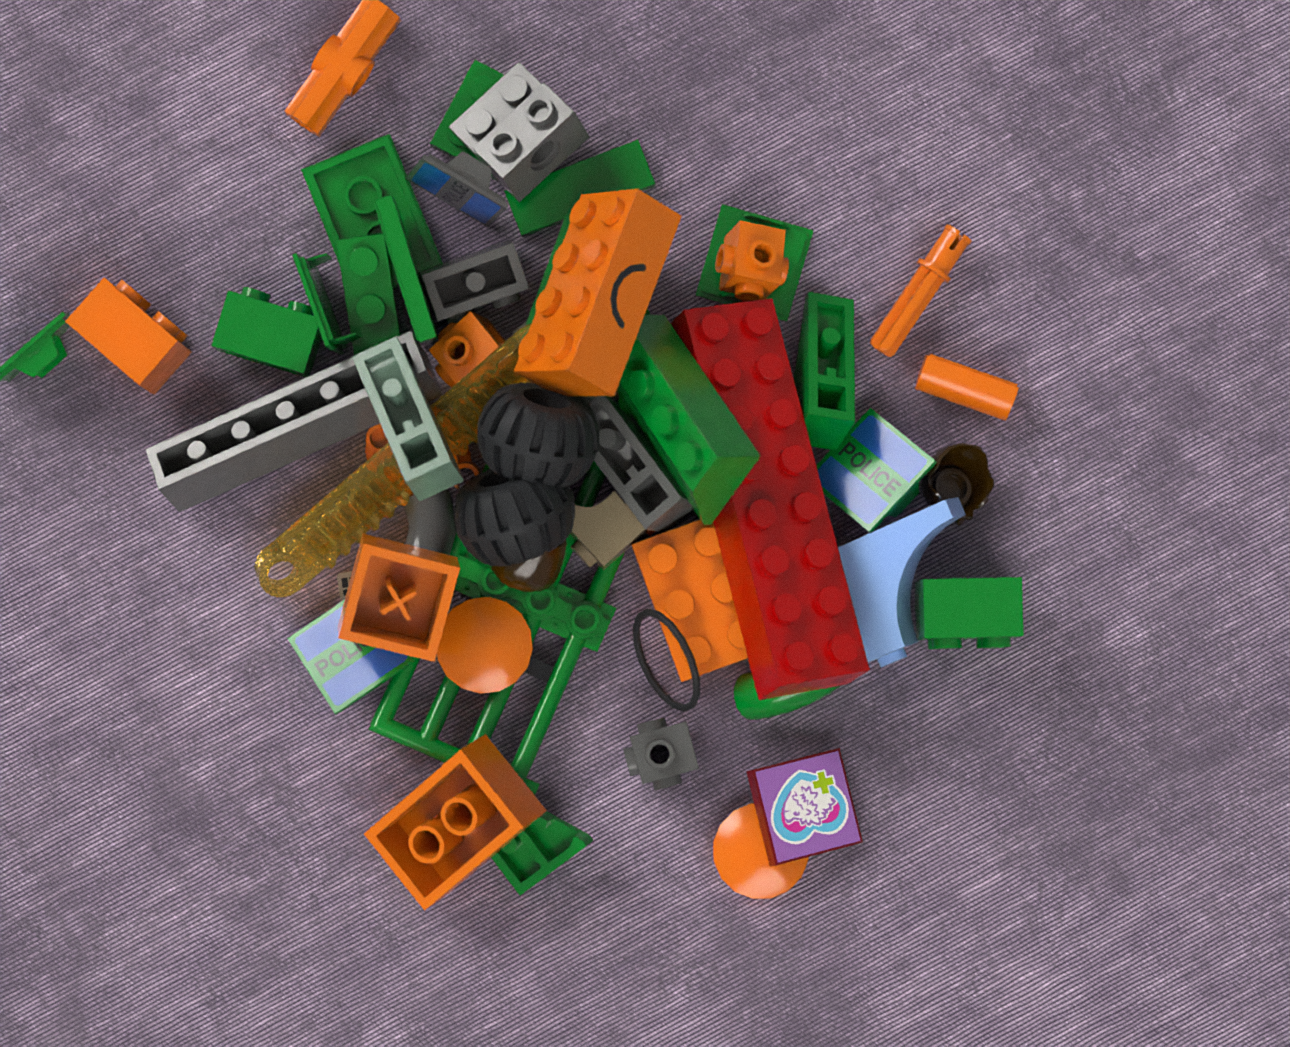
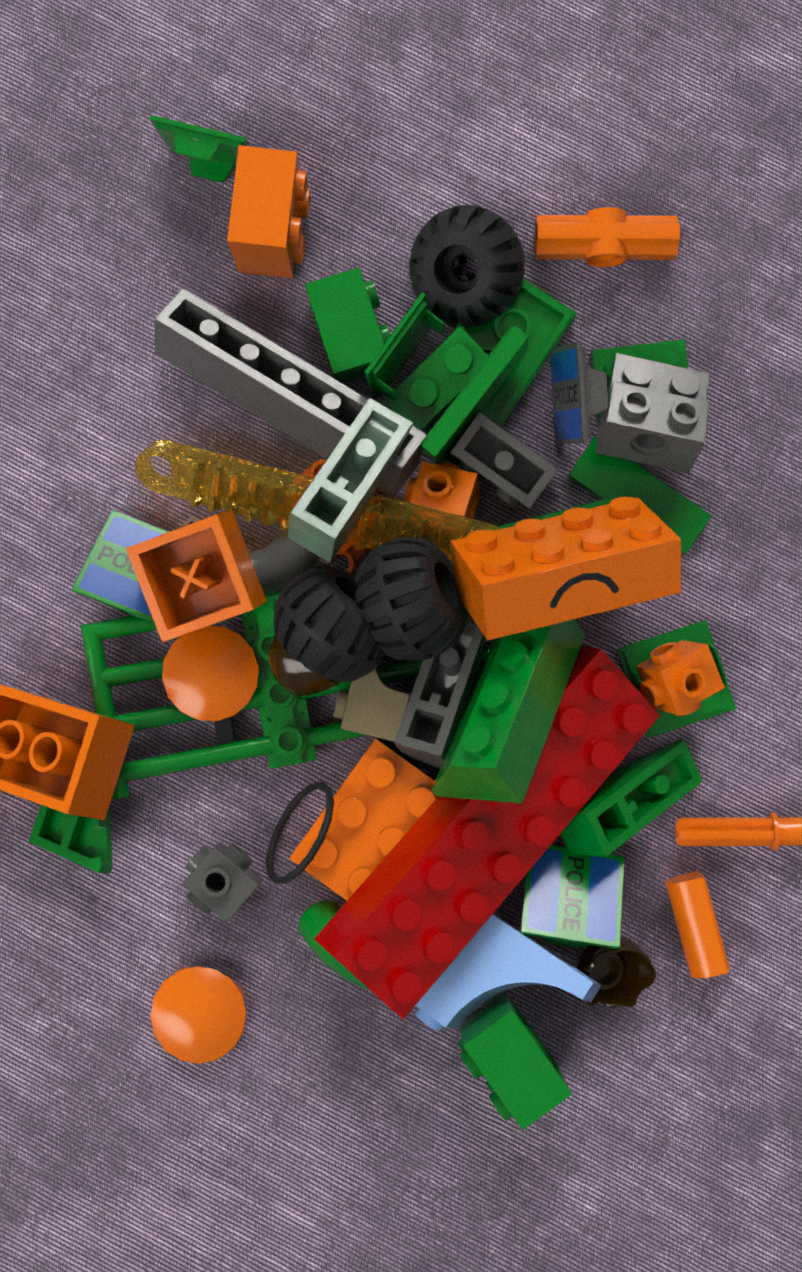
camera: 55 degrees right, 0 degrees up
(292, 228) = (441, 252): none -> black wheel
(804, 807) = (256, 1028): tile -> none

